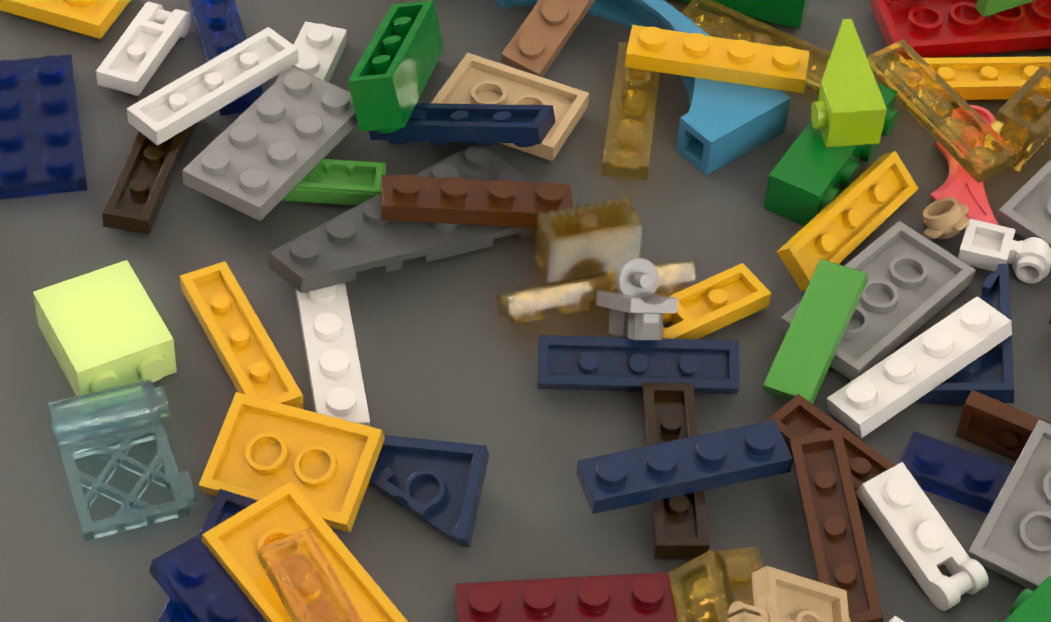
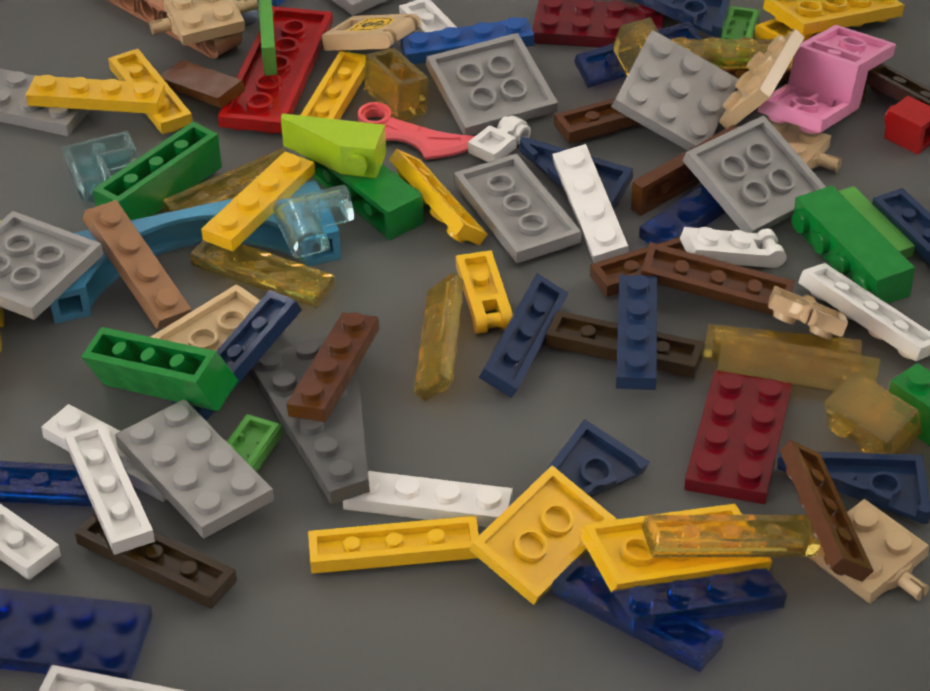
camera: 65 degrees left, 5 degrees down
(105, 330) = (349, 623): yellowish green brick -> none
(112, 421) = (448, 635): clear light blue piece -> none
(587, 240) = (399, 322): clear yellow brick -> none
(637, 308) = (485, 300): light grey hips -> none
(708, 101) = (306, 214): none -> clear light blue brick
(815, 331) = (545, 236): bright green tile -> none
(942, 111) = (394, 114): clear yellow plate -> none
(945, 218) = (457, 154): tan plate -> none

